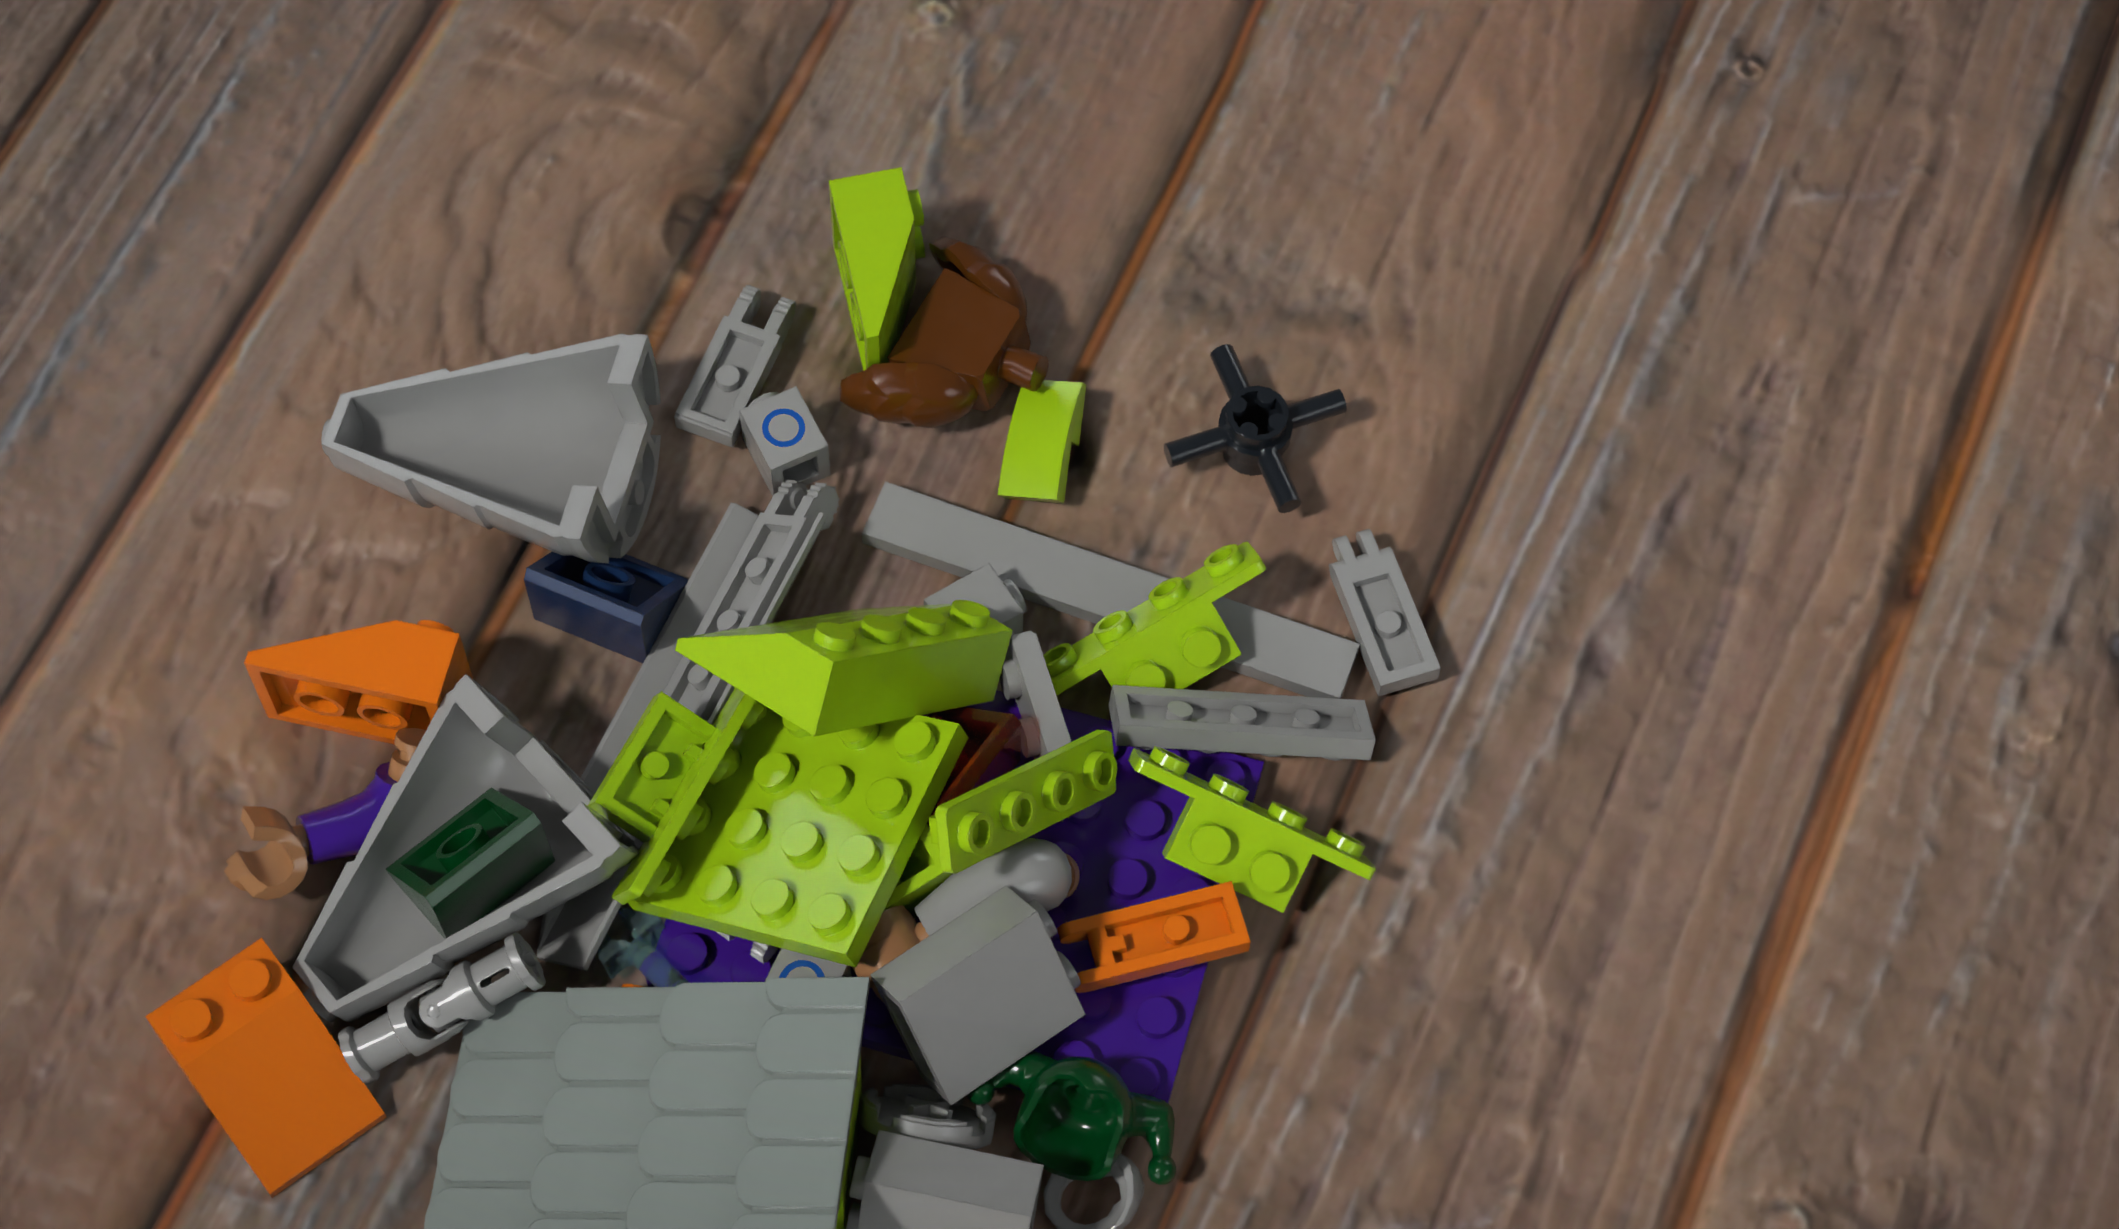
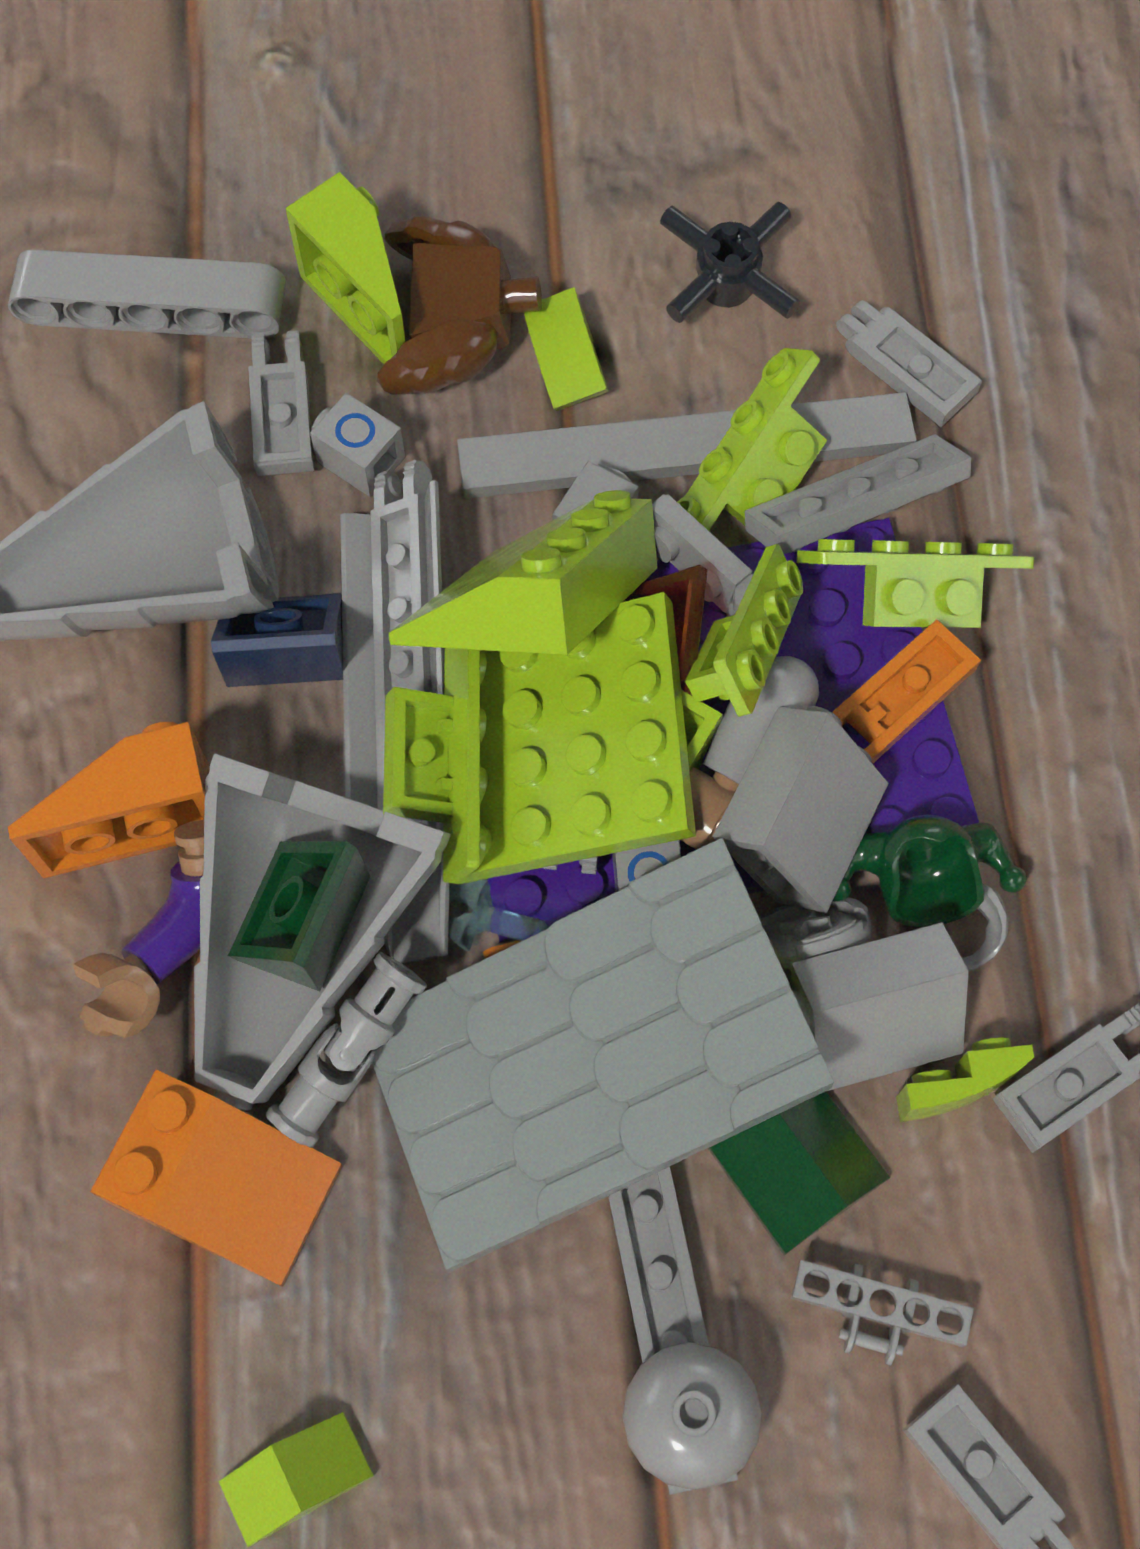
camera: 25 degrees left, 5 degrees up
(671, 199) = (147, 294): none -> light grey beam

